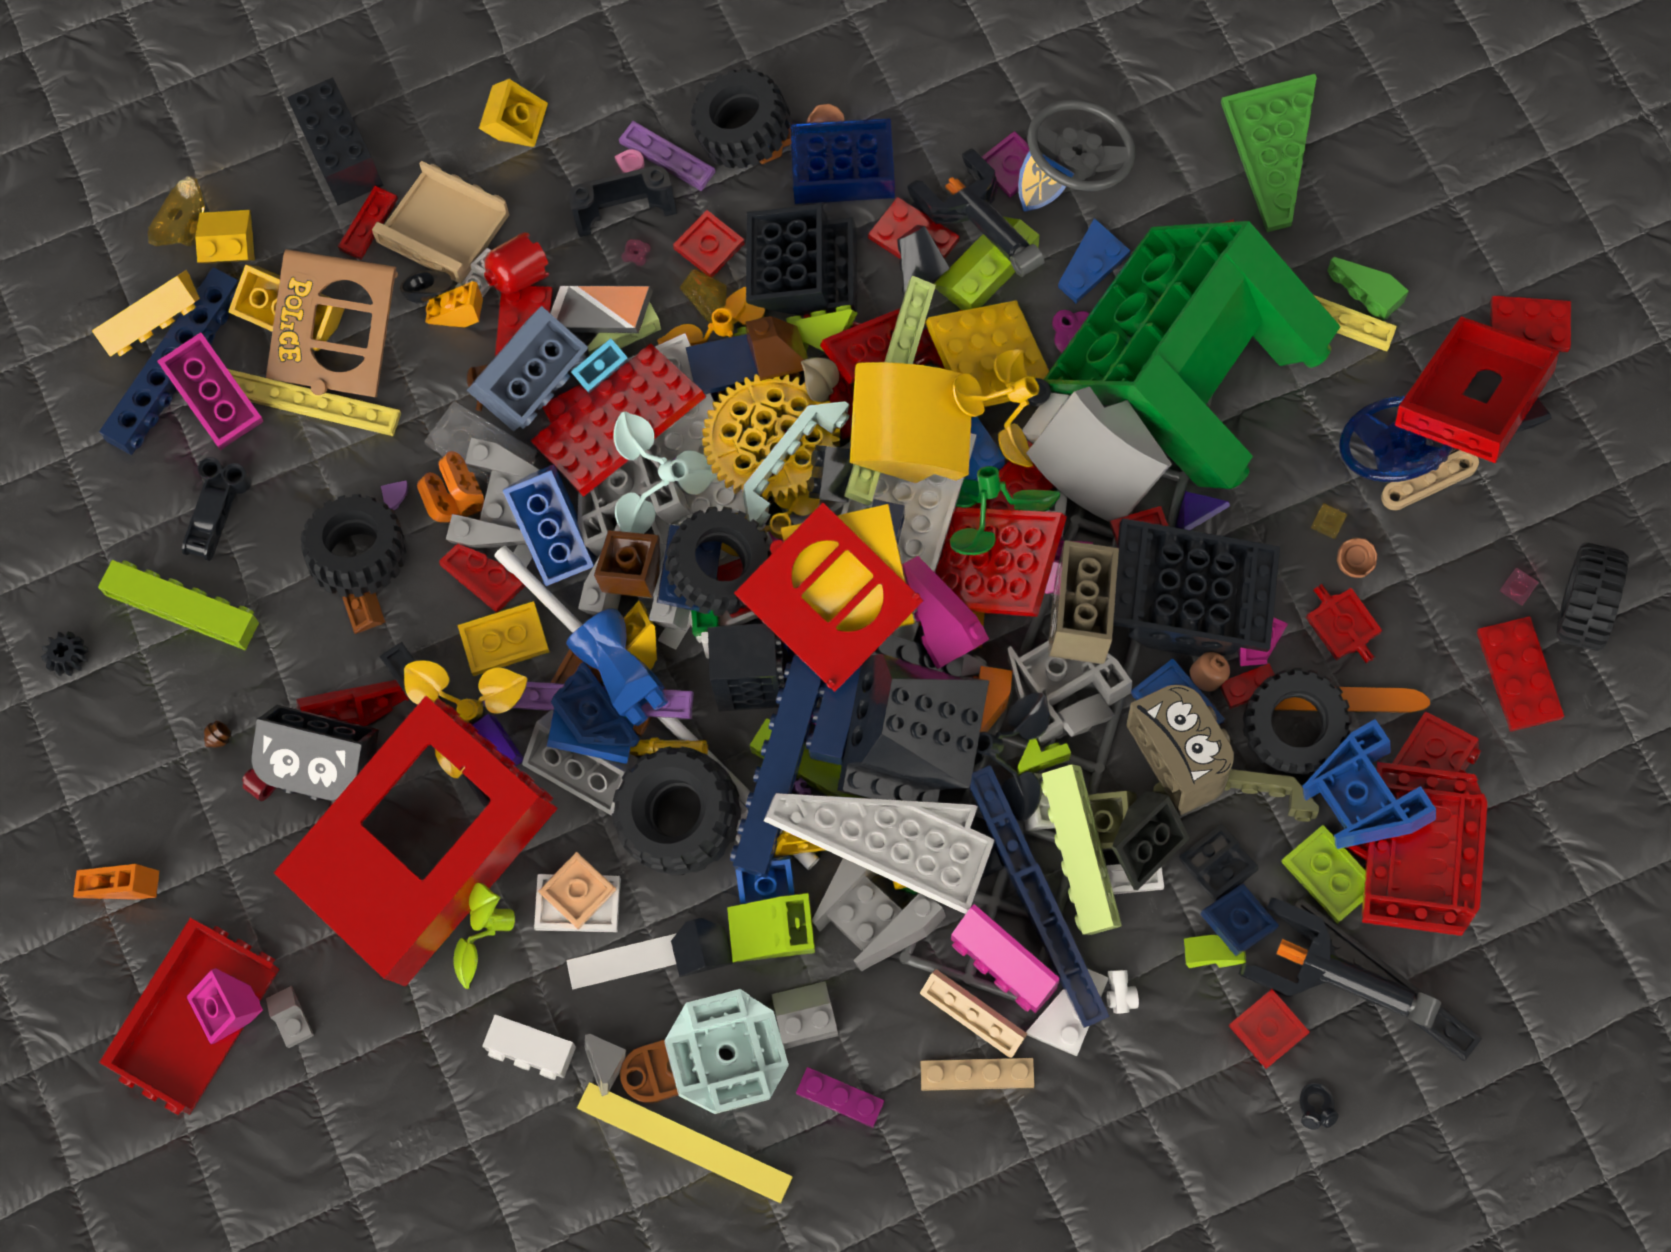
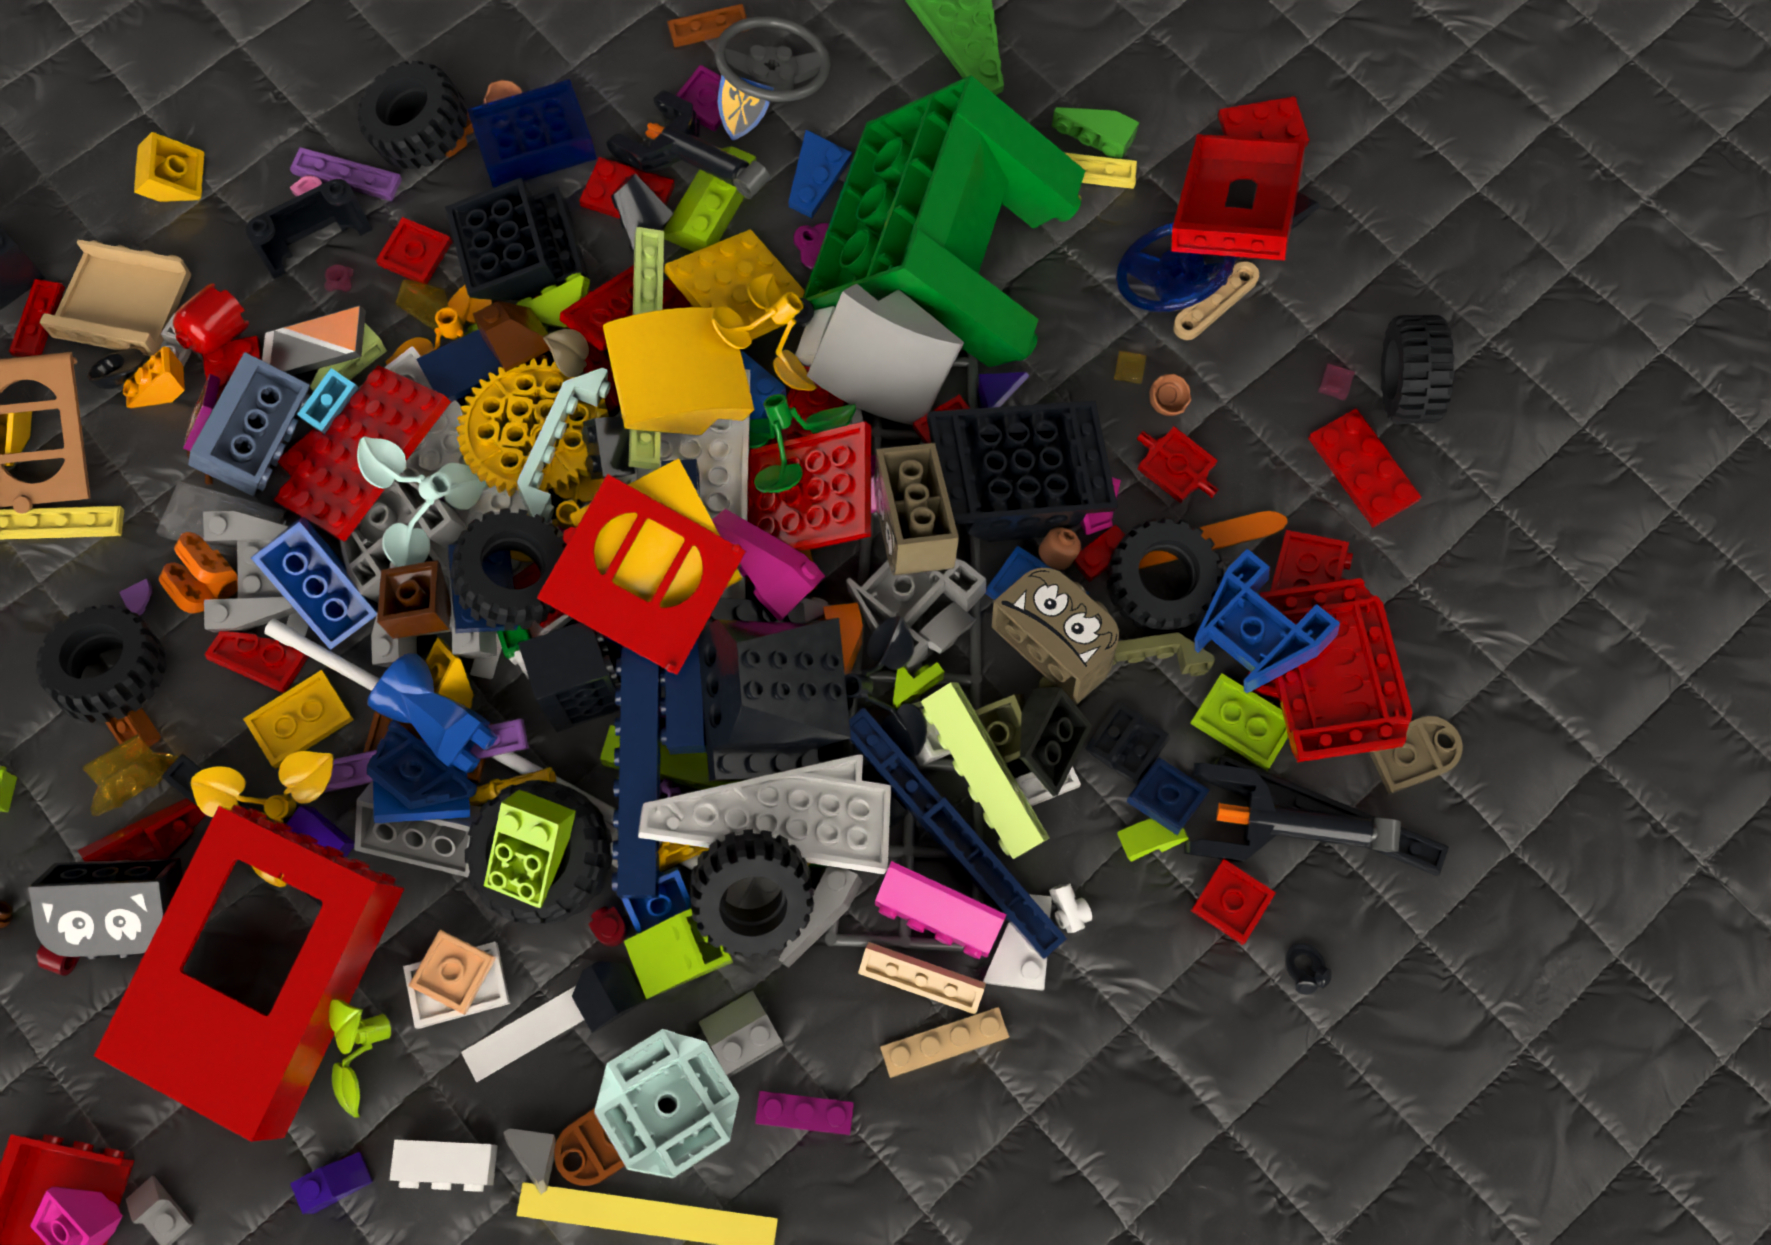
camera: 25 degrees left, 0 degrees up
(350, 645) = (125, 773): none -> clear yellow piece
(434, 1035) = (331, 1183): none -> dark purple slope
(489, 347) = (202, 411): none -> magenta tile
(669, 802) = (528, 846): none -> lime slope
(717, 891) = (608, 926): none -> dark red plate
(841, 927) = (756, 928): none -> black tyre
(1031, 93) = (704, 25): none -> dark orange tile
(1481, 948) = (1420, 756): none -> dark tan tile

